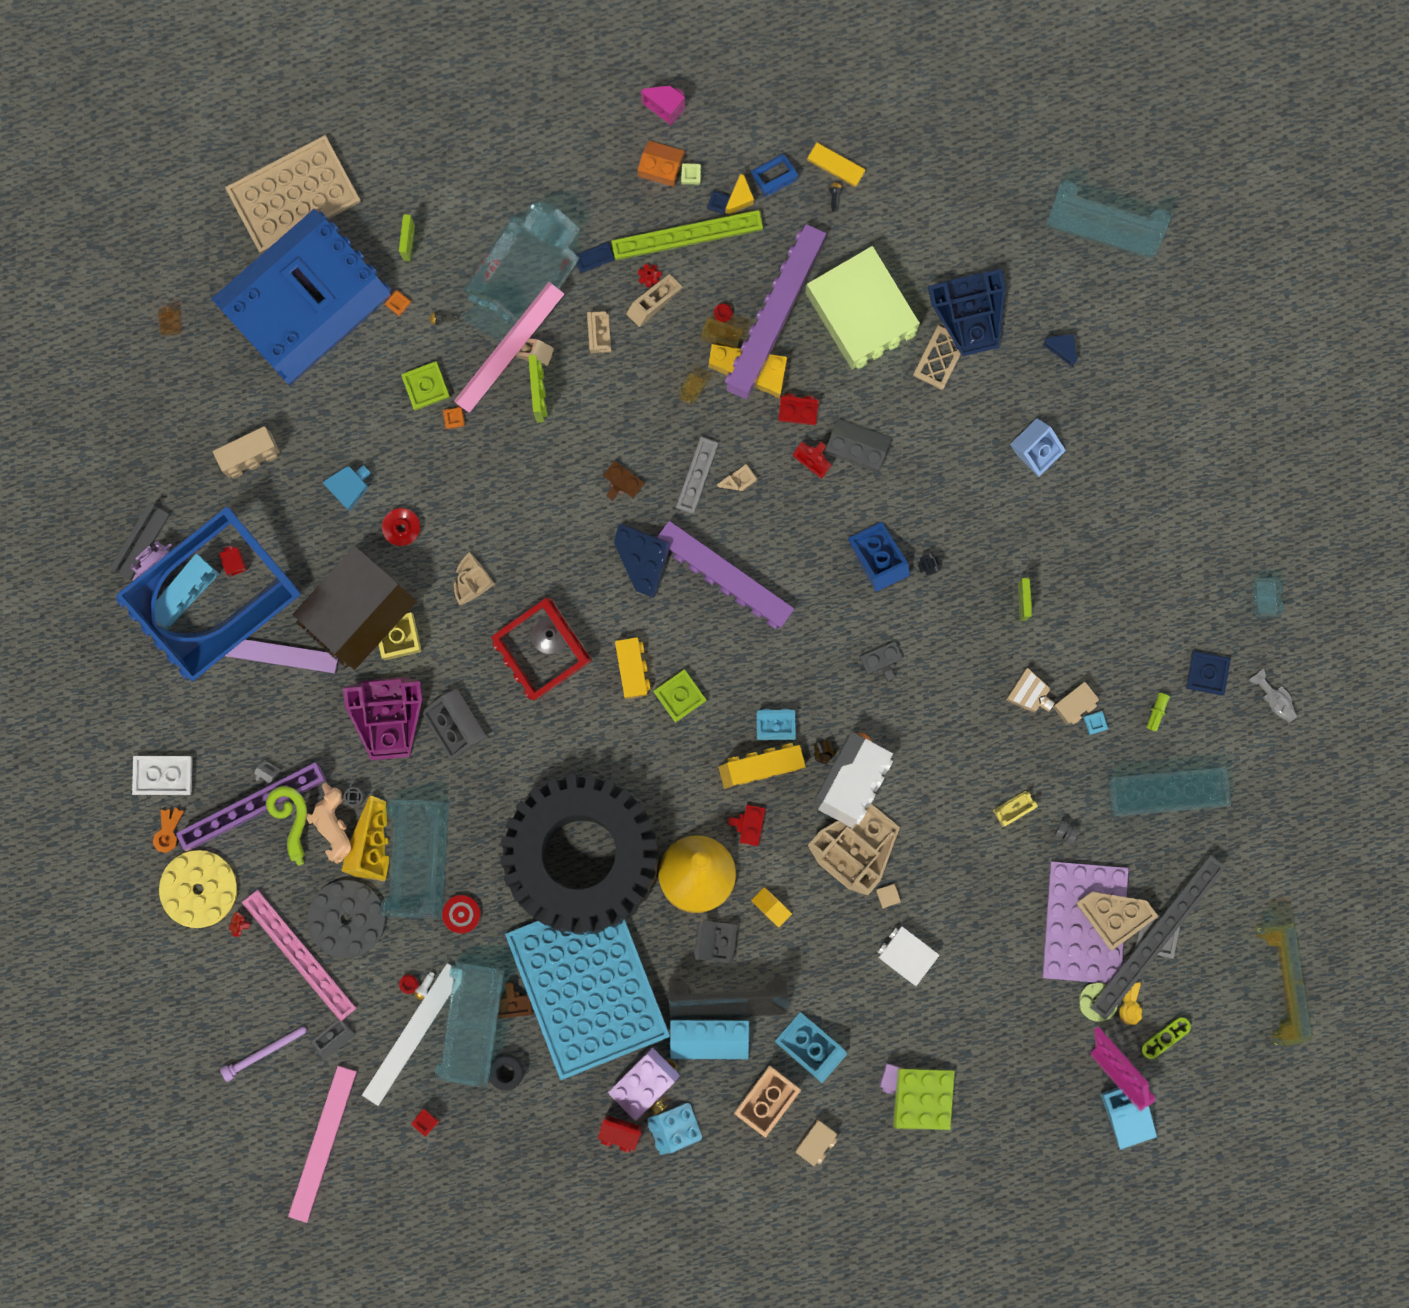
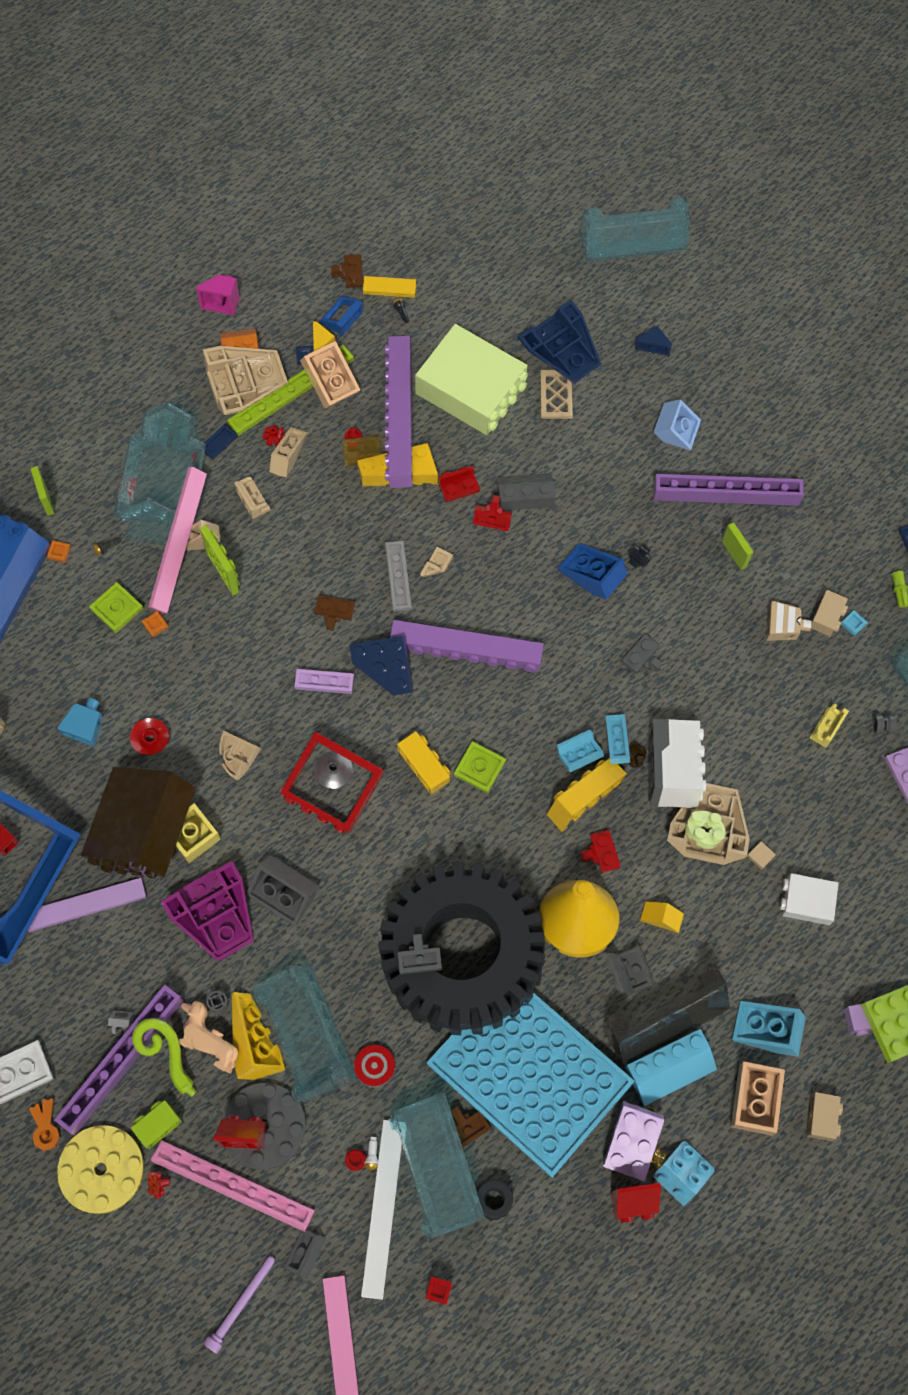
camera: 30 degrees left, 15 degrees down
(258, 875) = (156, 1124): none -> lime brick
(322, 920) = (241, 1133): none -> red slope
(534, 850) = (419, 958): none -> dark grey hinge
(580, 548) = (324, 681): none -> lavender plate
(646, 203) = (242, 376): none -> tan wedge
(691, 174) = (270, 341): yellowish green plate -> none
(692, 389) = (357, 506): clear yellow brick -> none
(728, 241) = (330, 375): none -> light nougat brick
(806, 129) = (350, 271): none -> reddish brown hinge
(814, 730) = (617, 739): none -> medium azure plate
(837, 855) = (712, 822): none -> yellowish green plate
(1048, 537) = (728, 489): none -> medium lavender brick

